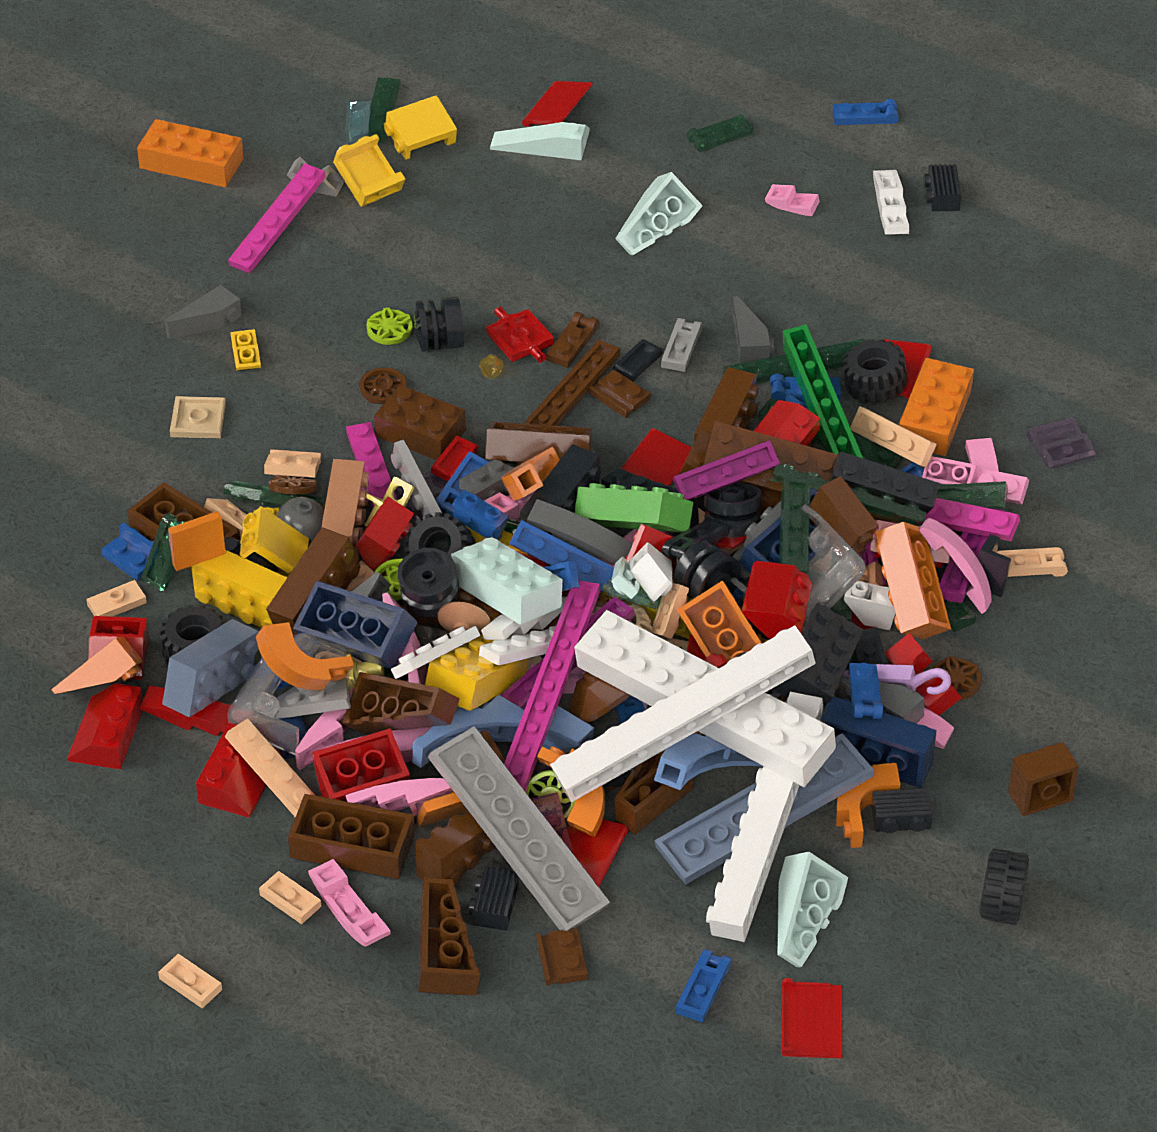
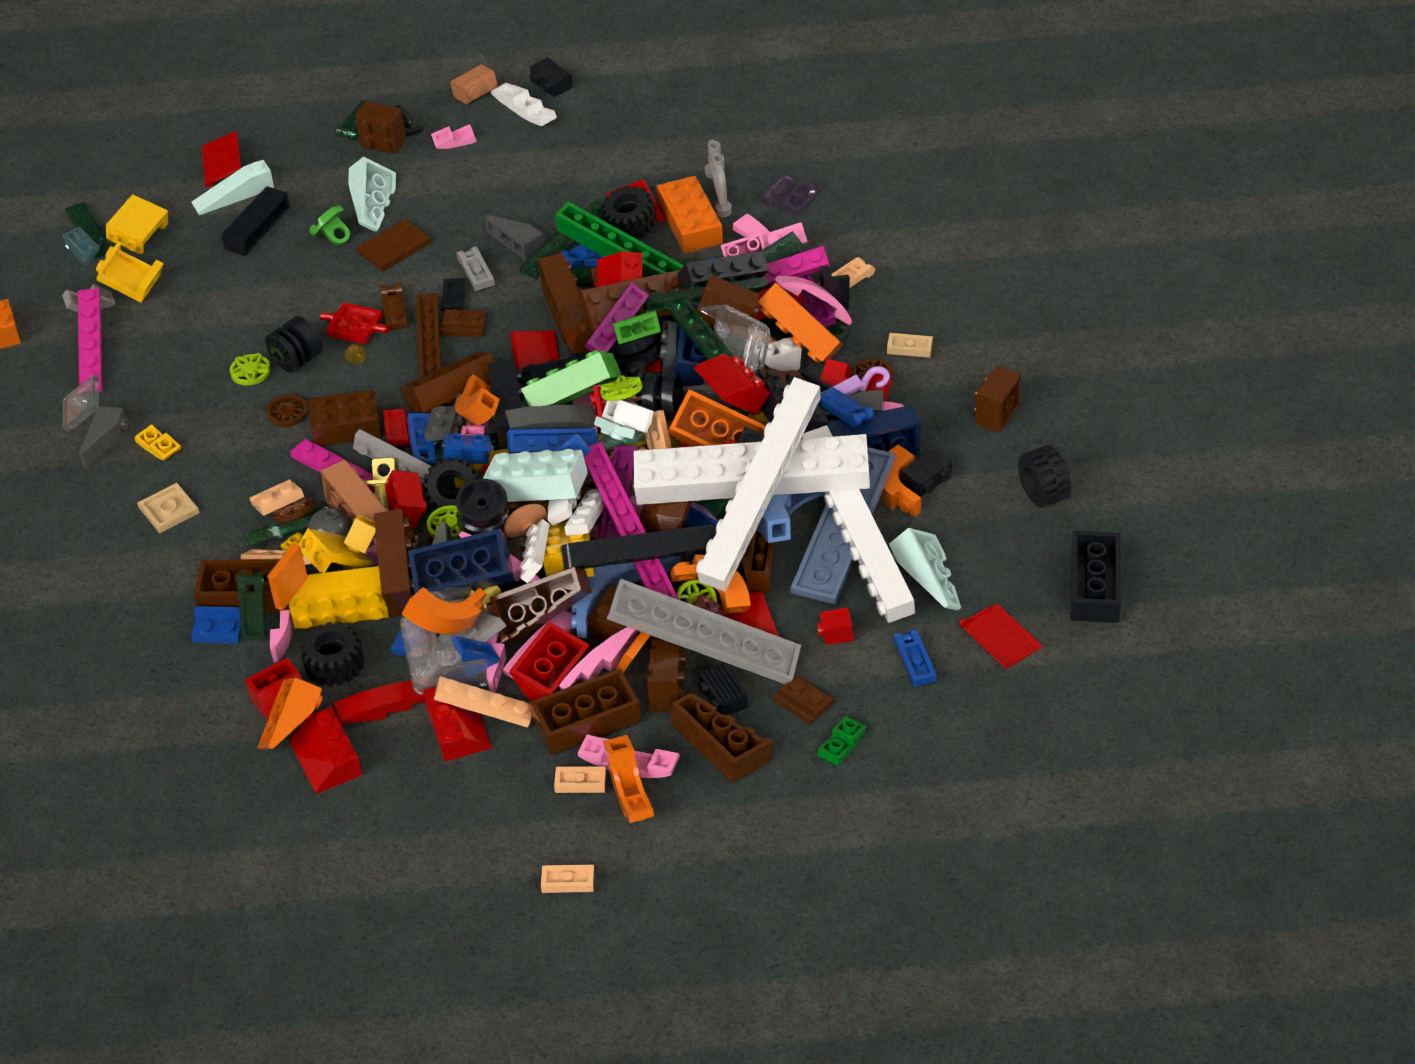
camera: 35 degrees left, 0 degrees up
(117, 600) = (238, 665): light nougat plate -> none
(168, 598) = (281, 637): none -> bright pink slope
(210, 667) = (376, 660): sand blue brick -> none
(213, 273) = (80, 403): none -> clear plate
(301, 714) = (475, 650): none -> blue slope
(302, 538) = (360, 534): none -> yellow brick
(324, 924) = (626, 779): none -> orange arch
(517, 704) = (637, 547): none -> black beam
(528, 183) = (255, 221): none -> black brick
(563, 1018) = (843, 740): none -> green slope
(587, 221) = (329, 223): none -> bright green tile
(631, 278) = (393, 245): none -> reddish brown tile
(658, 905) = (835, 626): none -> red brick
(662, 541) = (621, 388): none -> lime wheel
(724, 151) = (380, 127): none -> reddish brown brick
(733, 489) = (636, 327): none -> bright green slope
(764, 160) = (408, 123): none -> black piece
(861, 154) = (473, 84): none -> nougat brick
(865, 113) = (446, 57): blue plate -> none
(893, 436) = (689, 245): light nougat plate -> none
(955, 1021) = (1095, 576): none -> black brick
(1007, 374) = (715, 170): none -> light grey bar
(1020, 670) = (909, 345): none -> tan plate

